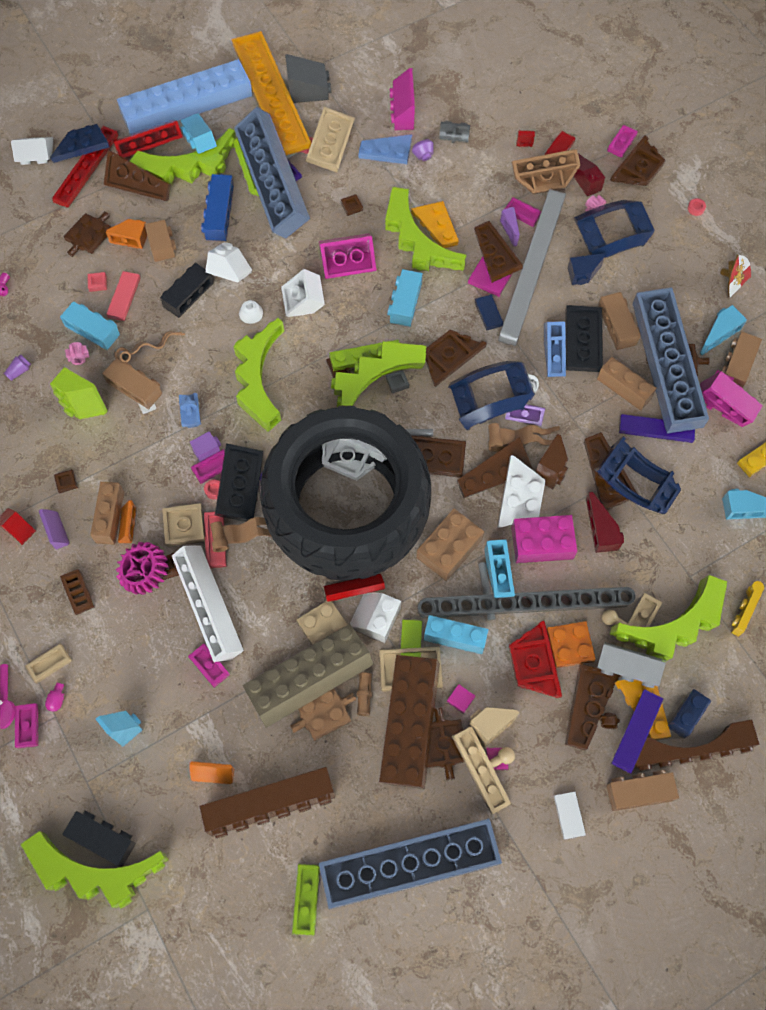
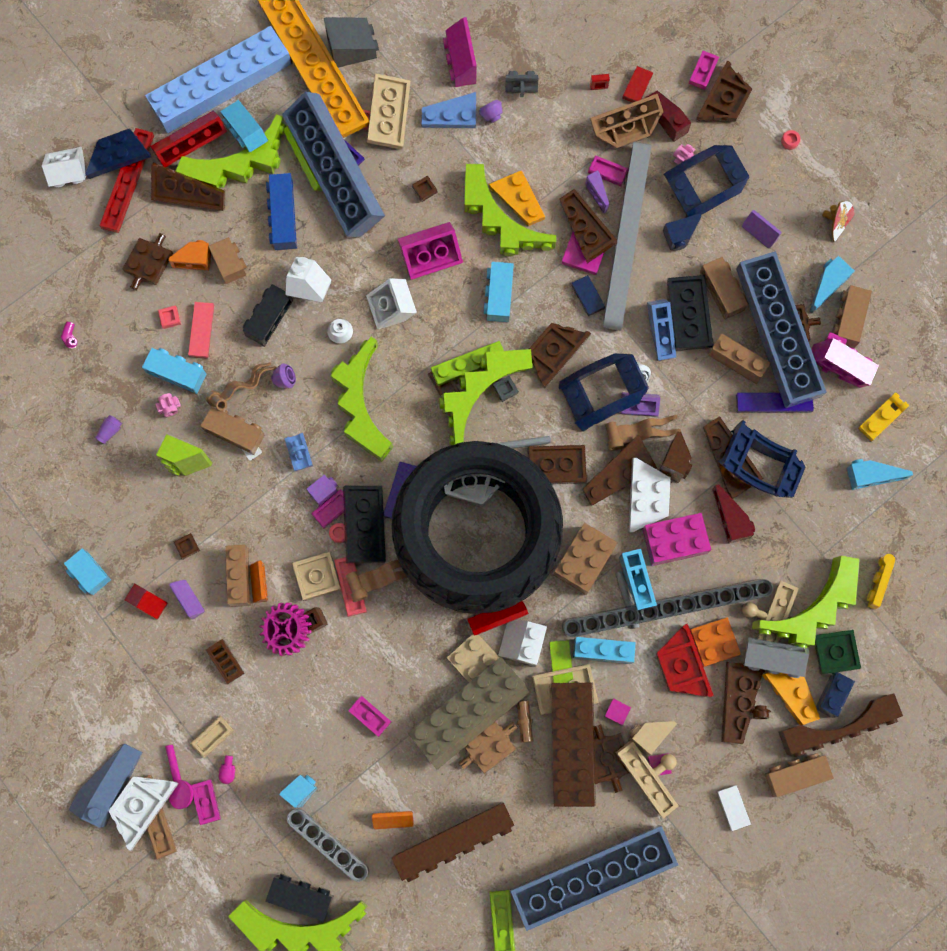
camera: 10 degrees left, 10 degrees up
(144, 797) = (317, 842): none -> light grey beam
(190, 343) = (283, 376): none -> medium lavender cone
(207, 603) = (357, 655): white brick -> none
(637, 731) = (788, 721): dark purple tile -> none
(660, 274) = (761, 229): none -> medium lavender slope
(695, 671) = (837, 652): none -> dark green plate

